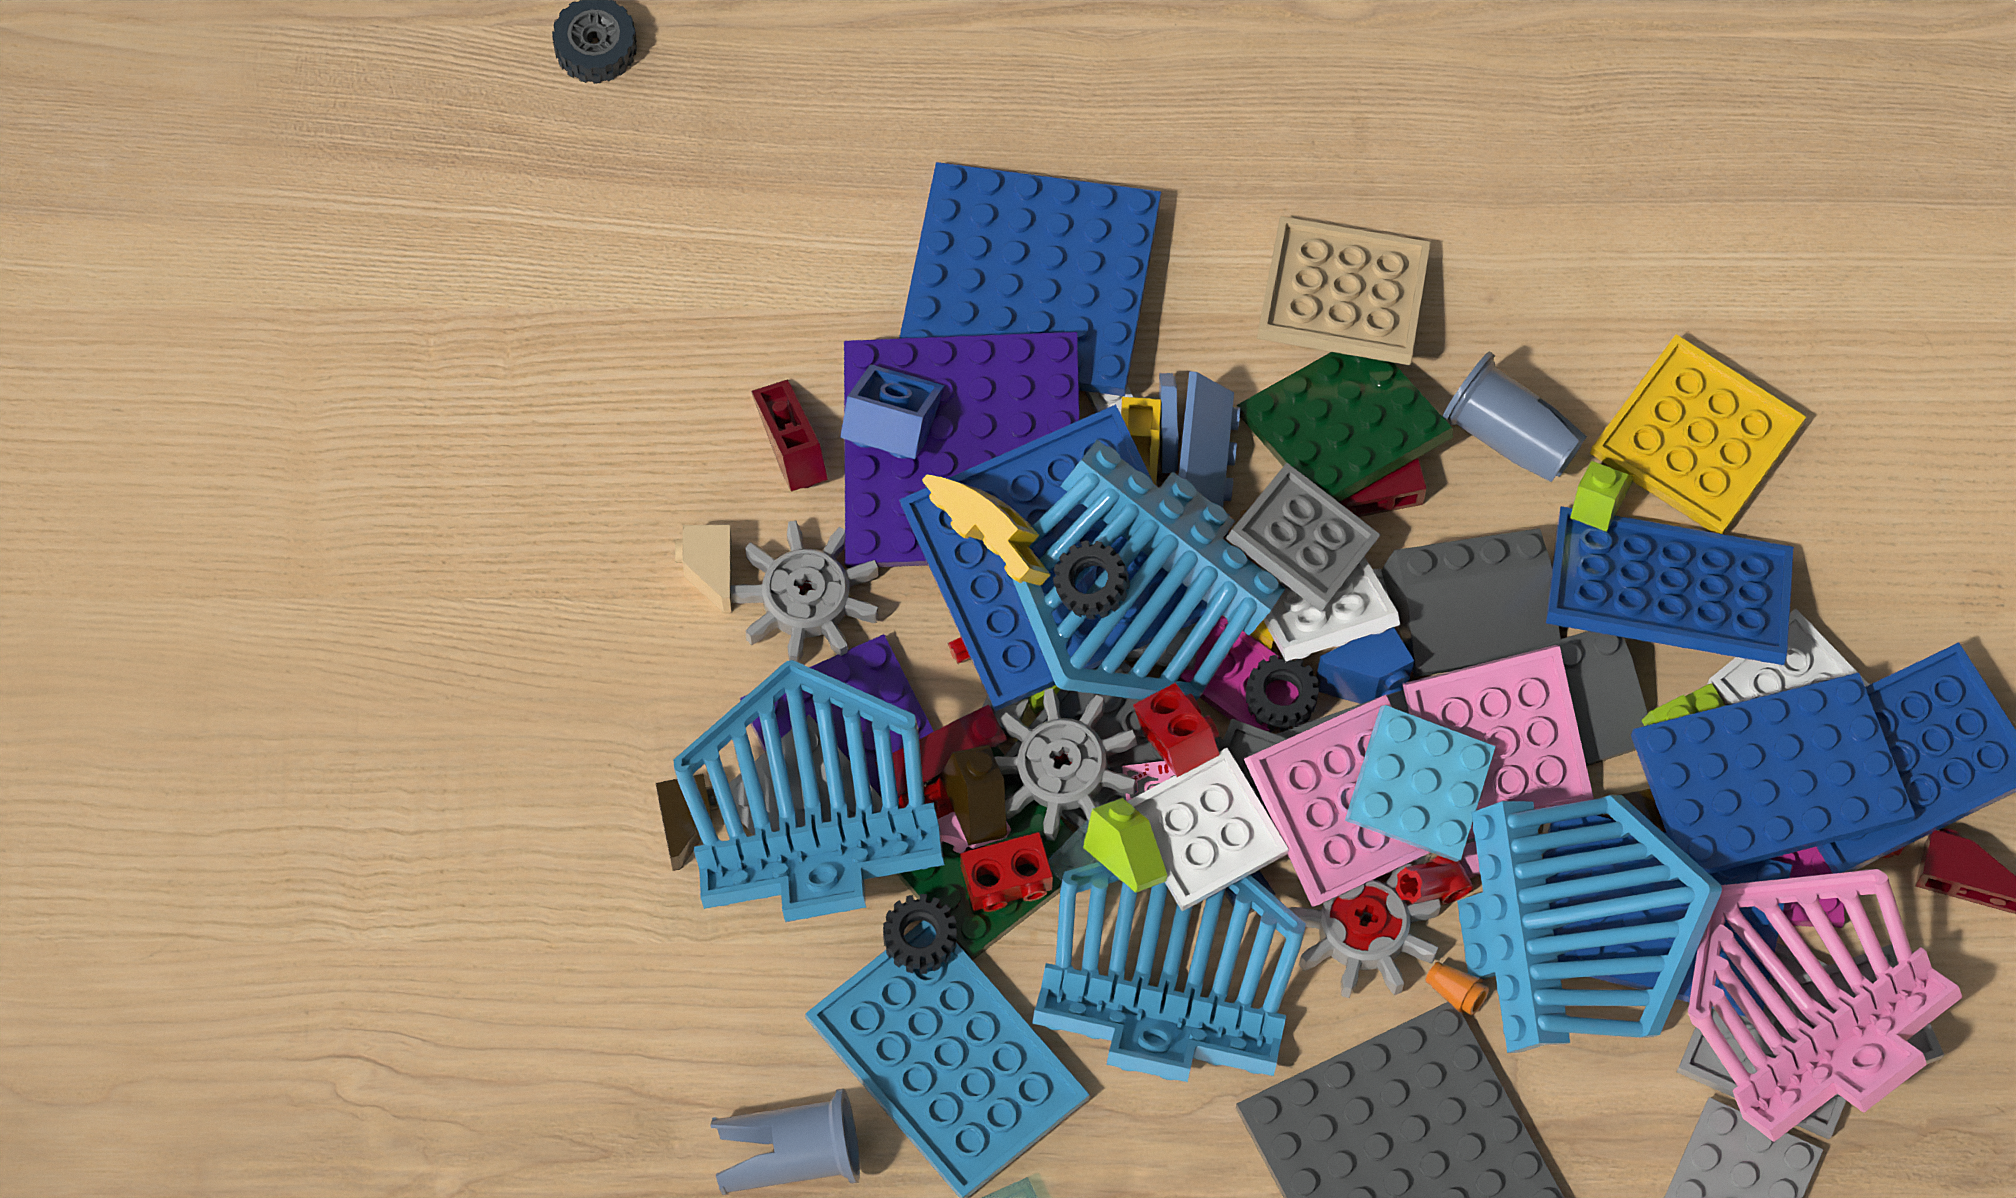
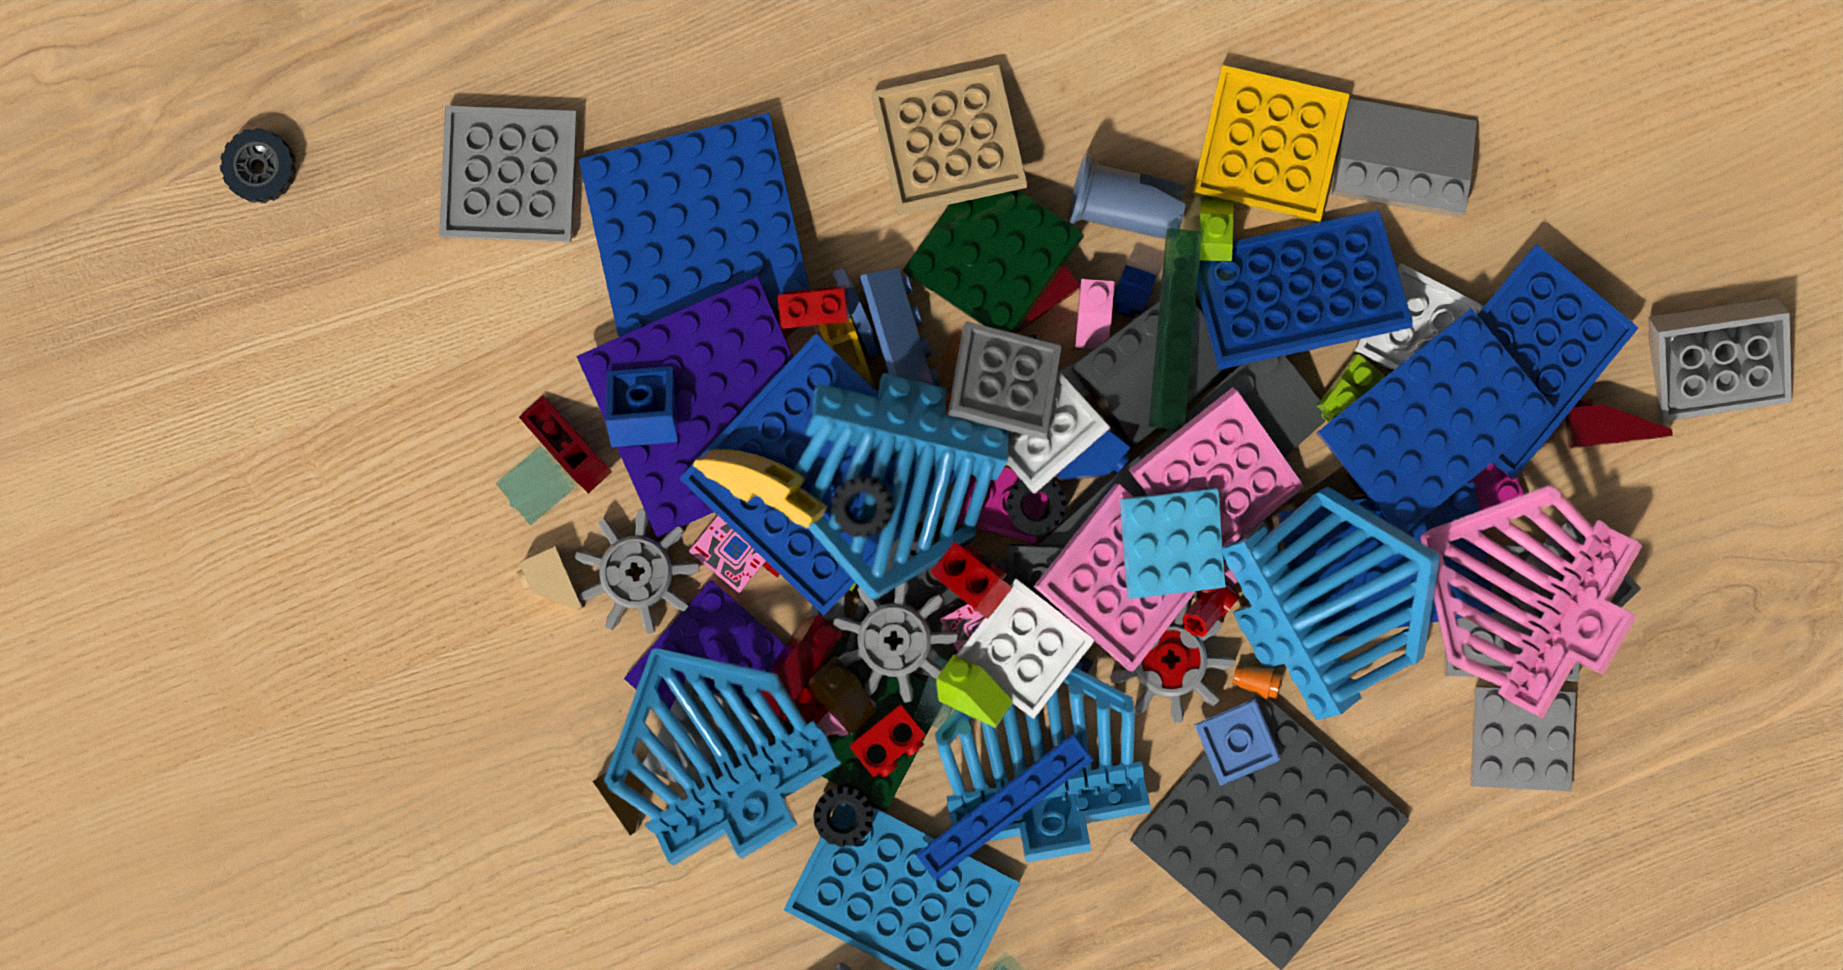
camera: 20 degrees left, 20 degrees up
(736, 467) = (535, 486): none -> clear light blue piece
(854, 148) = (508, 174): none -> light grey plate
(917, 616) = (727, 555): none -> tile
(1108, 995) = (1004, 807): none -> blue tile
(1125, 383) = (814, 306): none -> red brick
(1405, 1039) = (1237, 742): none -> medium blue tile
(1434, 516) = (1094, 313): none -> bright pink slope
(1484, 517) = (1133, 291): none -> clear blue brick
(1515, 562) = (1175, 328): none -> clear green plate
(1840, 509) = (1405, 158): none -> light grey slope

